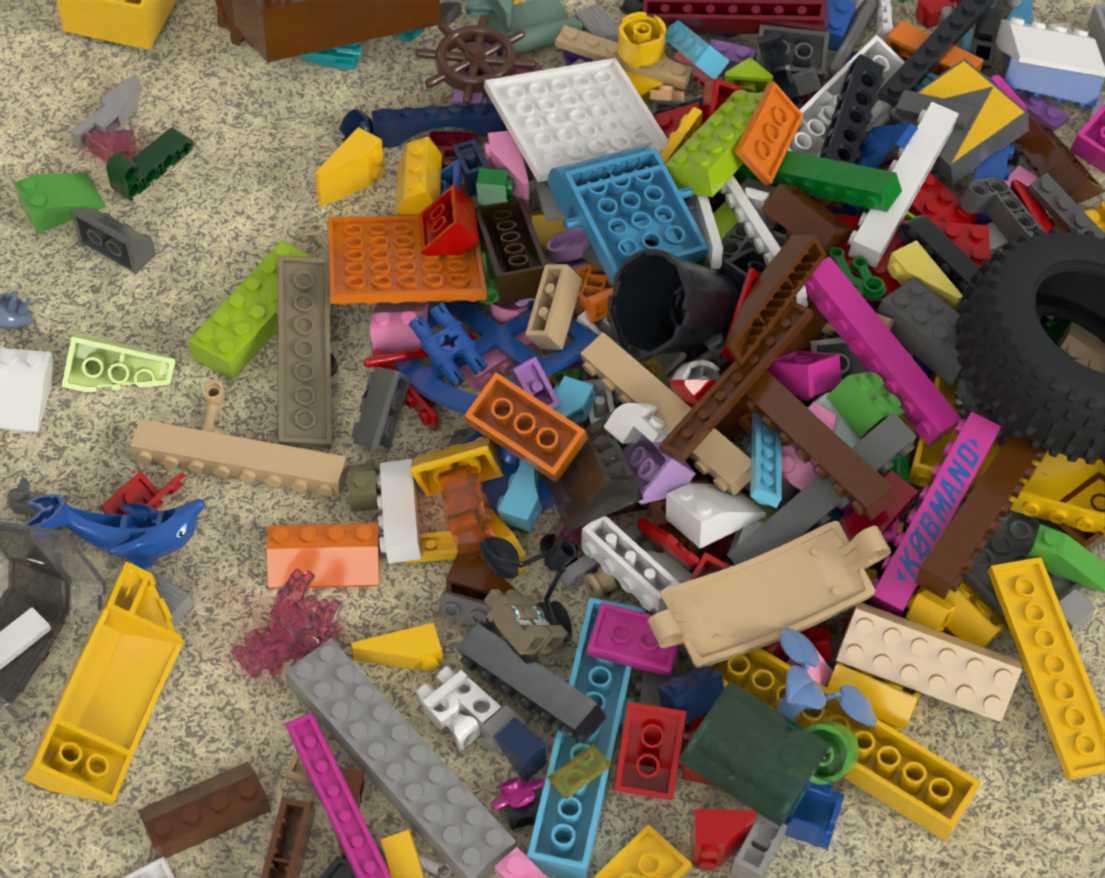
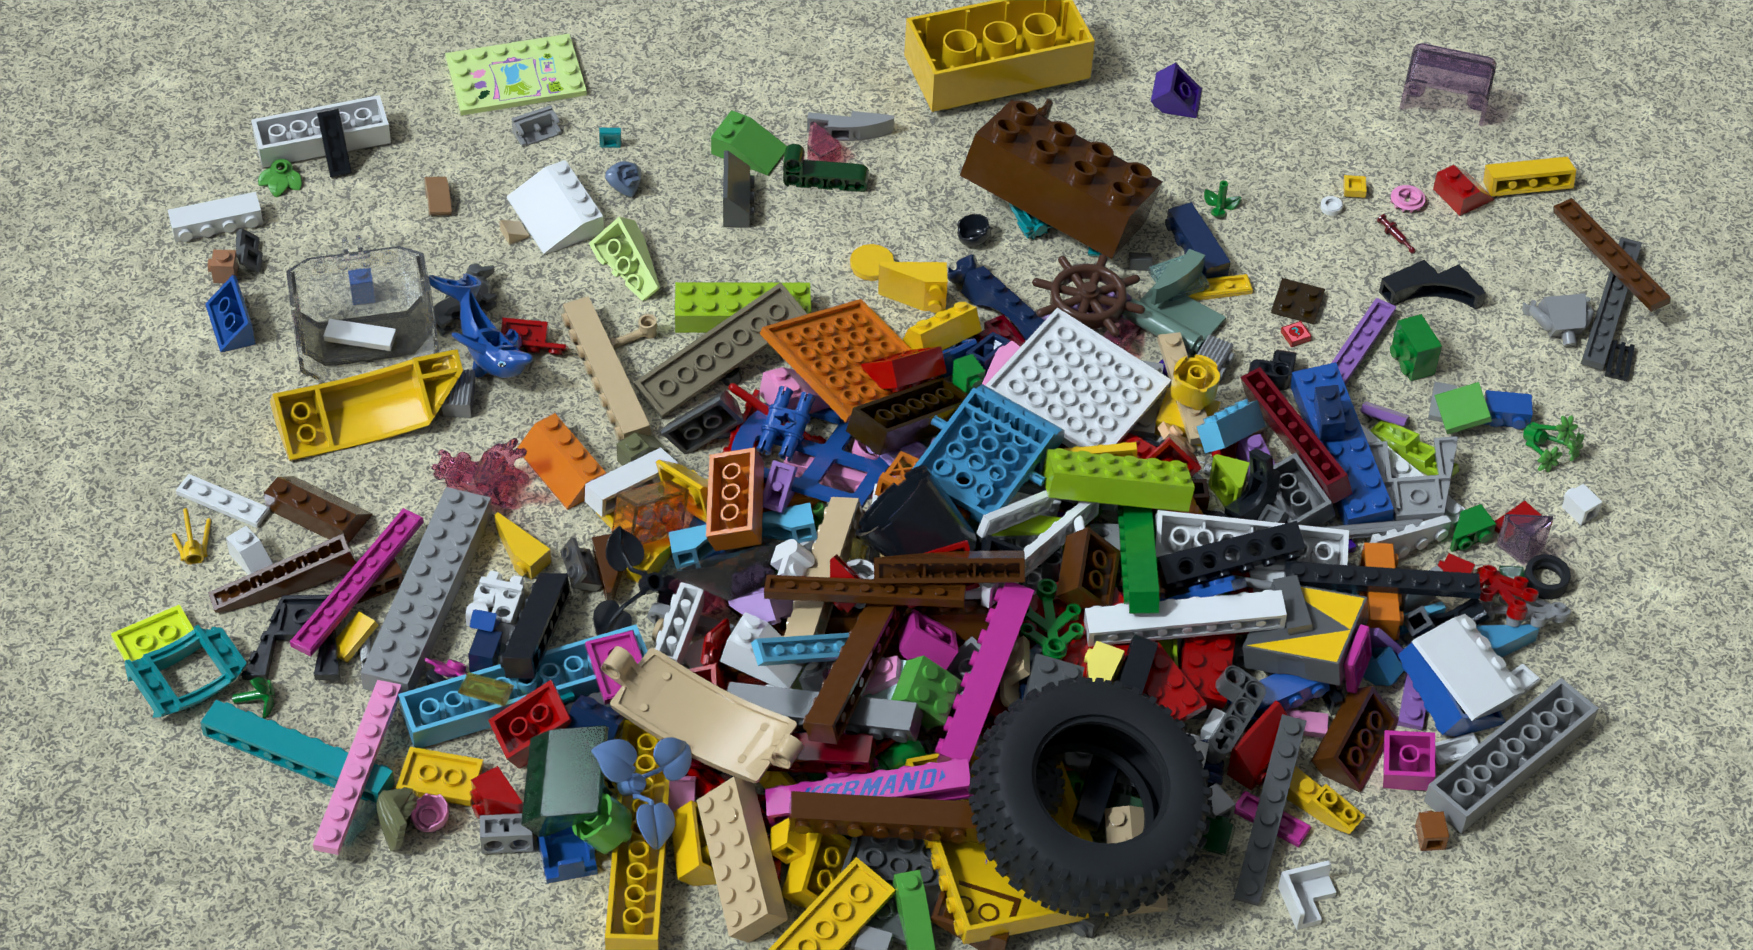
camera: 55 degrees right, 5 degrees down
(283, 189) = (866, 259): none -> yellow tile
(316, 93) = (973, 230): none -> black hair
(491, 726) = (484, 620): none -> blue slope
(523, 623) = (582, 594): dark tan hips -> none
(553, 306) = (859, 458): tan brick -> none
(769, 133) = (1148, 501): orange tile -> none

